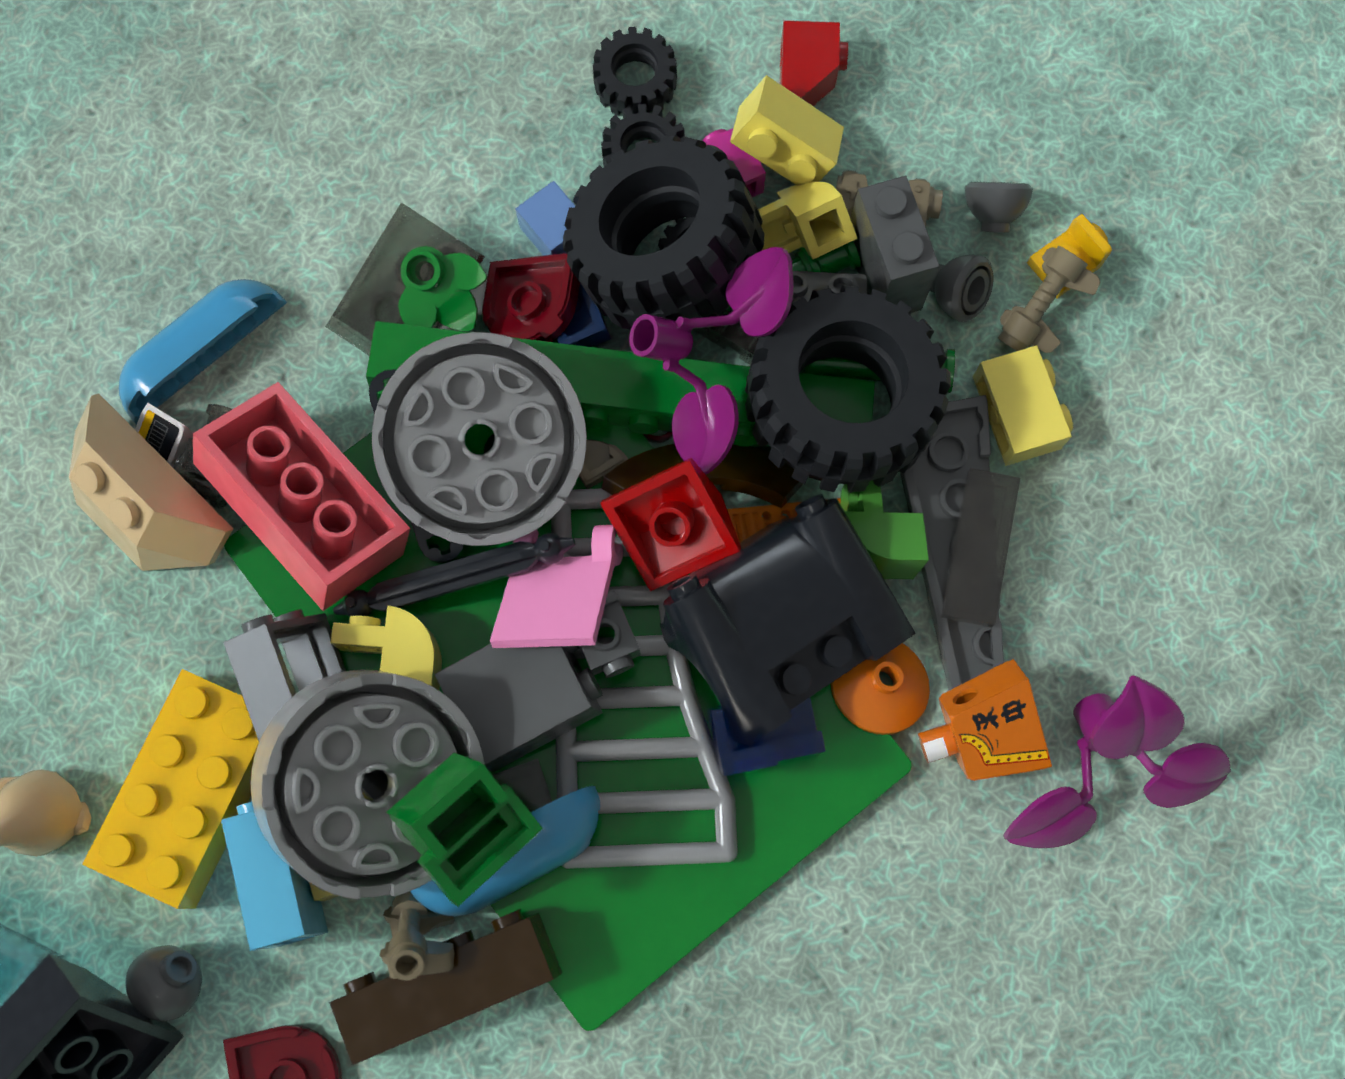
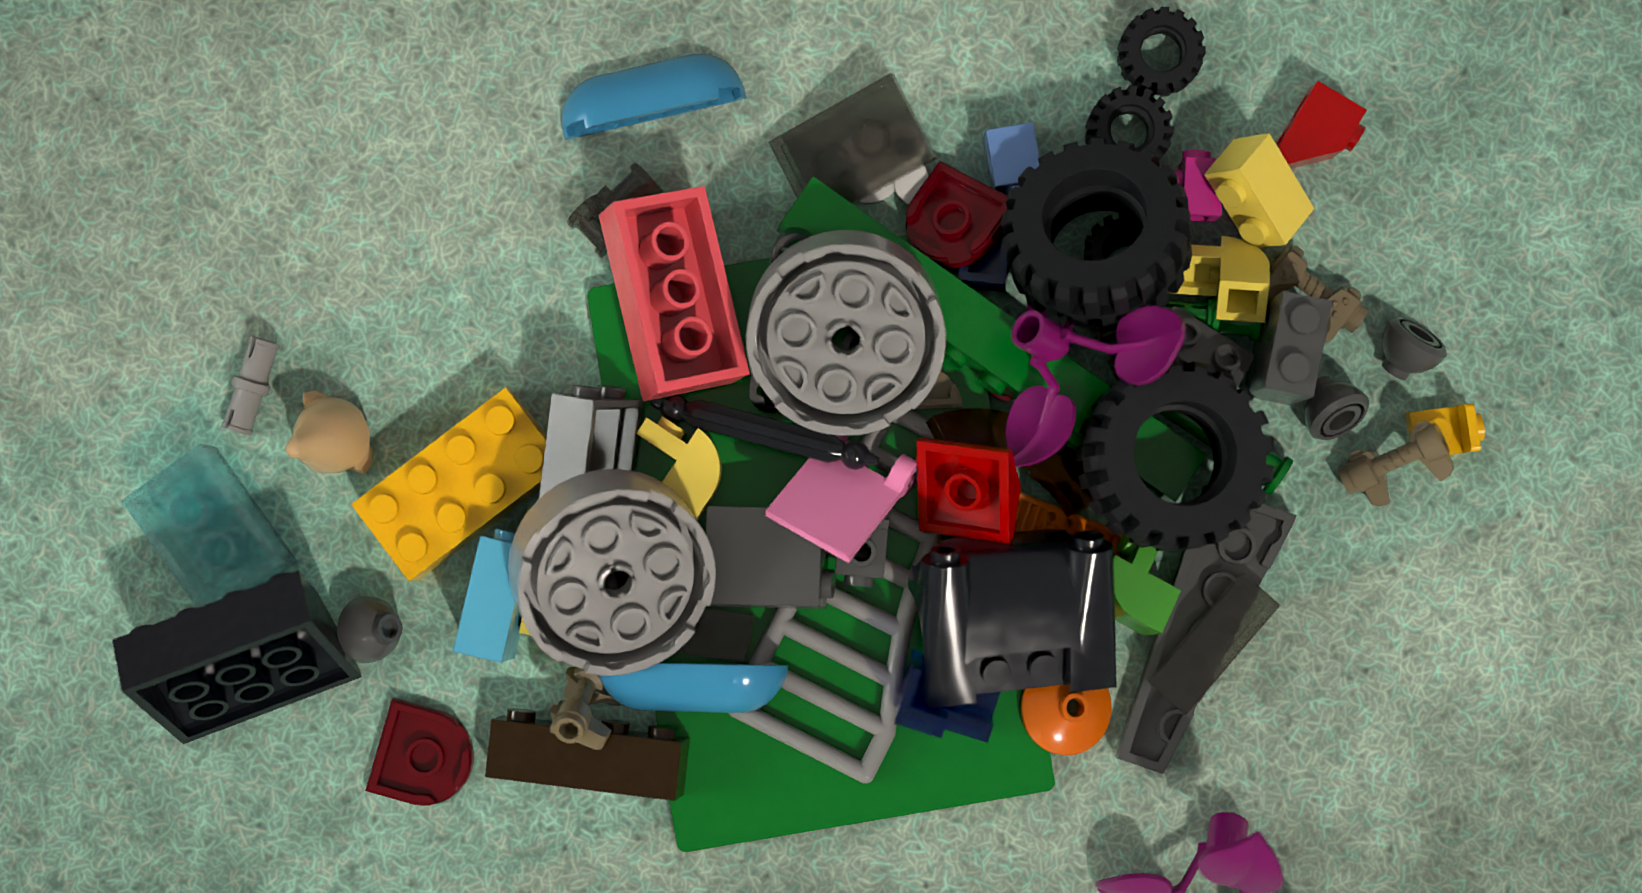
camera: 30 degrees right, 10 degrees up
(140, 495) = (539, 212): tan wedge -> none
(163, 433) = (578, 168): slope -> none
(446, 295) = (884, 179): green plate -> none
(463, 825) = (668, 650): green plate -> none
(990, 726) = (1133, 793): orange torso -> none
(1023, 405) = (1324, 541): light yellow brick -> none

